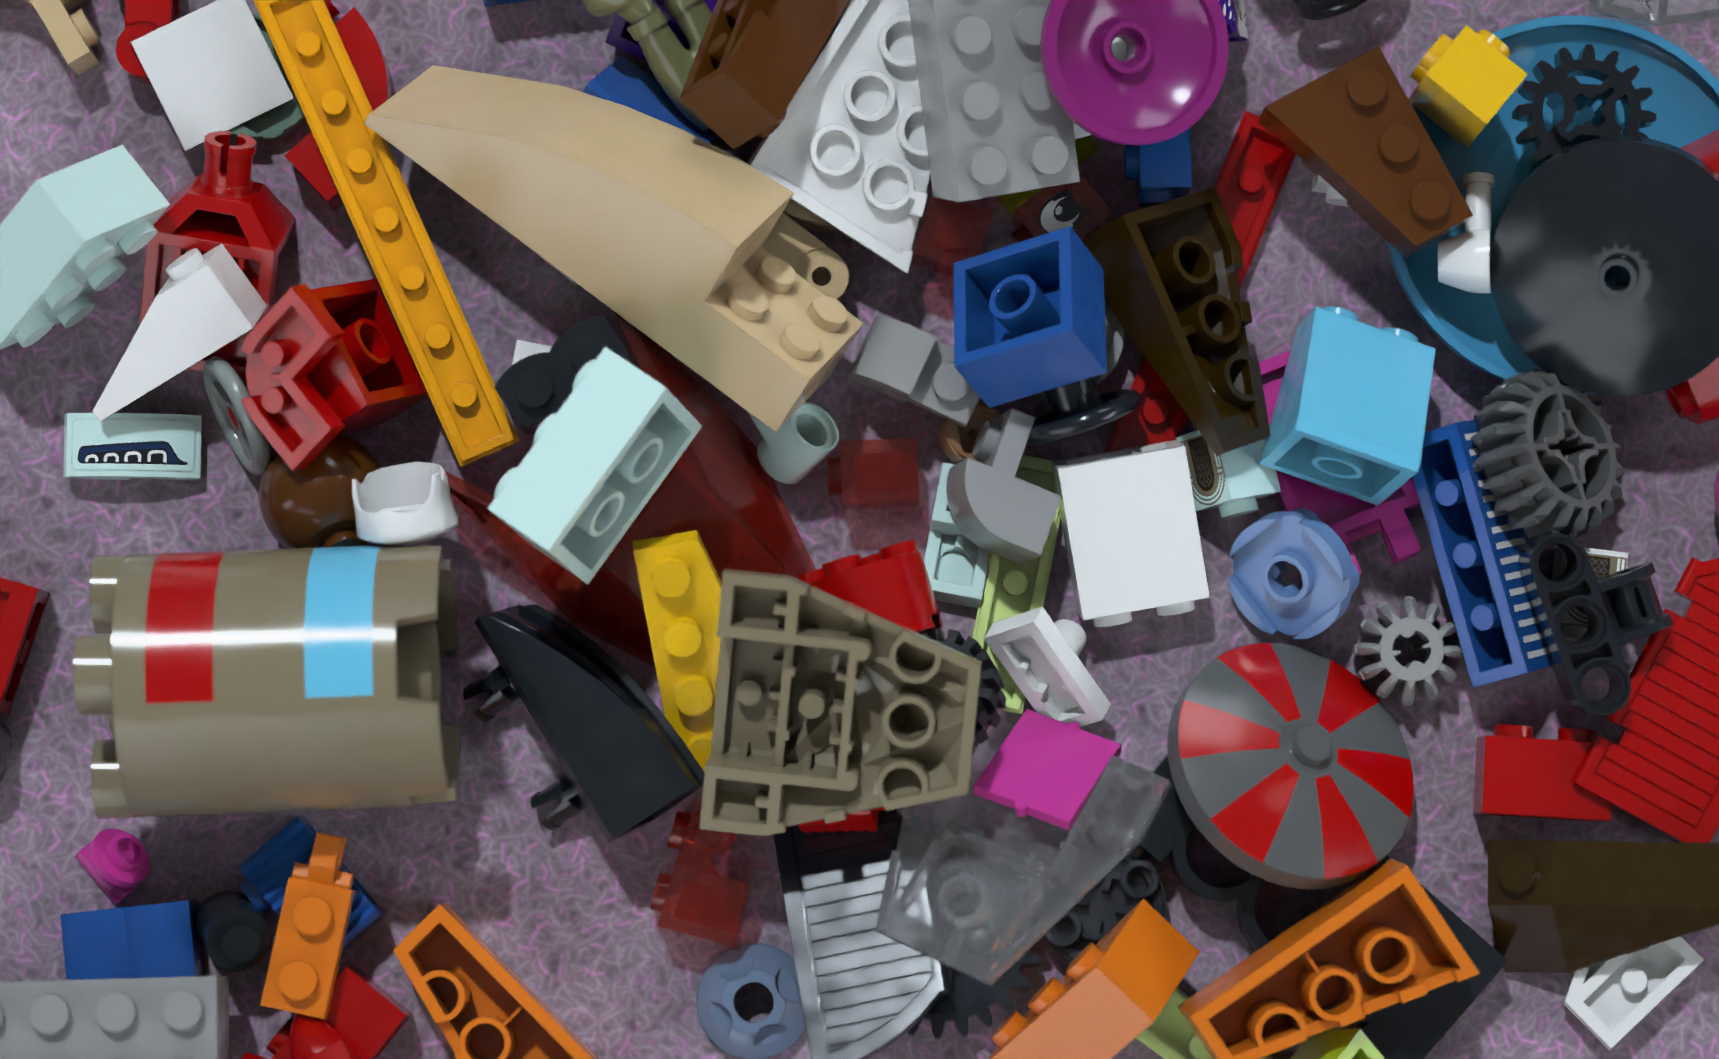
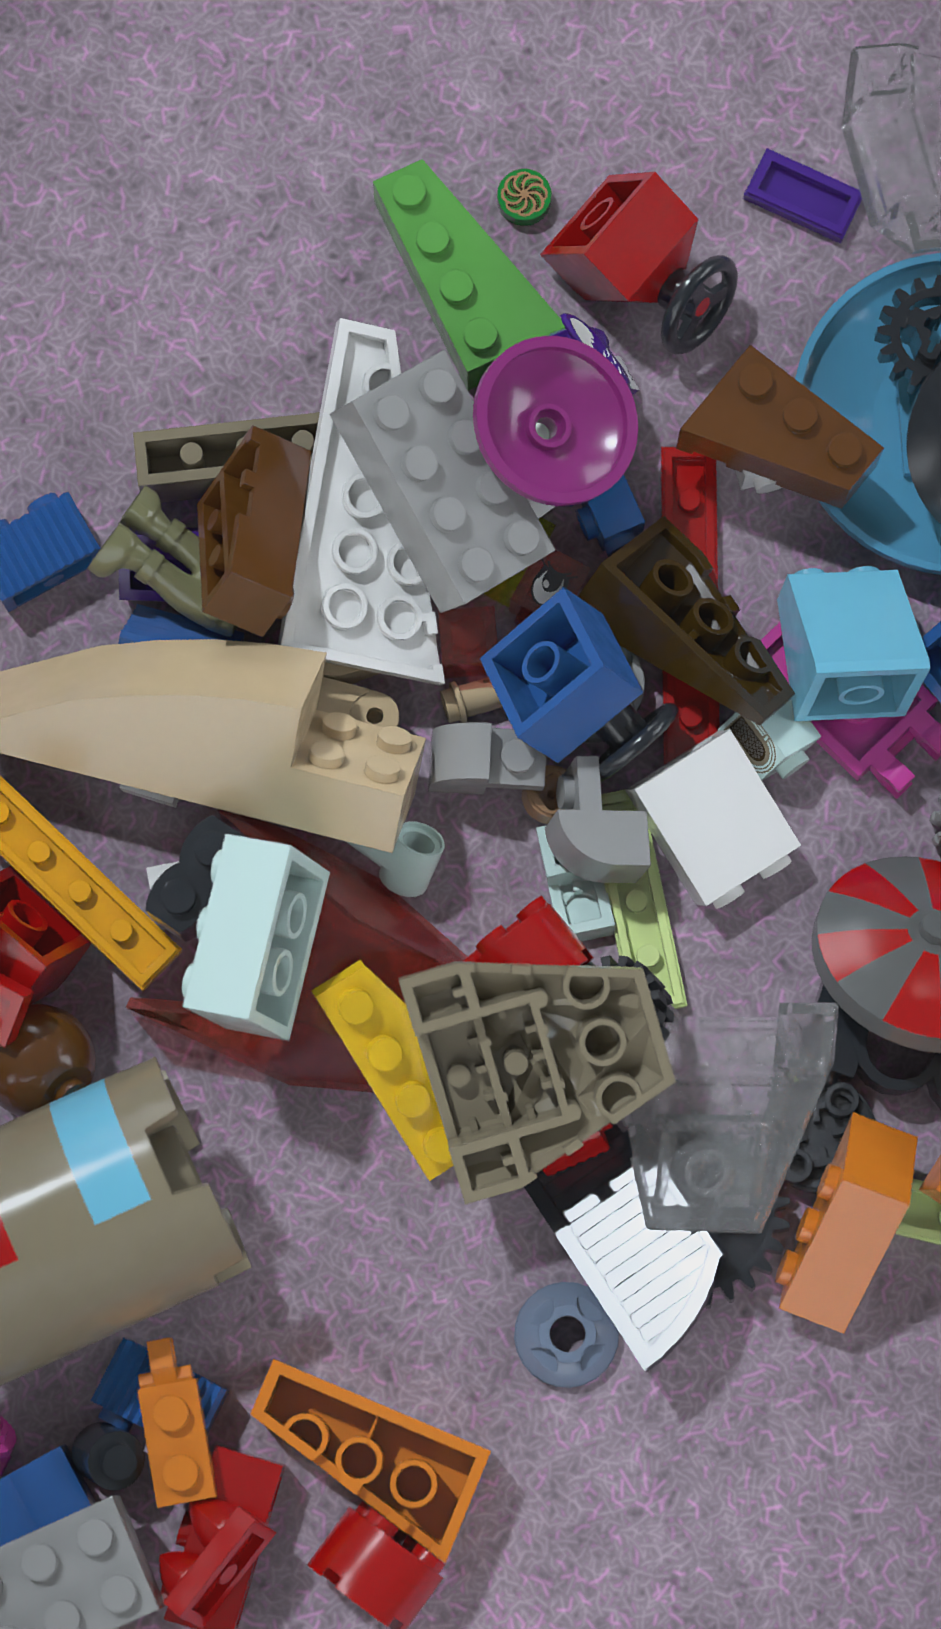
camera: 20 degrees left, 5 degrees down
(404, 504) = (109, 1037): white hair -> none
(597, 720) = (341, 1153): black piece -> none
(696, 895) = (483, 1265): clear red brick -> none
(875, 474) = (486, 858): clear red brick -> none
(926, 298) = (469, 700): none -> tan pin
(1046, 769) = (728, 1039): dark pink piece -> none
(1047, 666) = (694, 958): white tile -> none
(1315, 550) = (877, 775): medium blue plate -> none
(1465, 82) = (832, 346): yellow brick -> none
(1467, 256) = (891, 486): white bar -> none

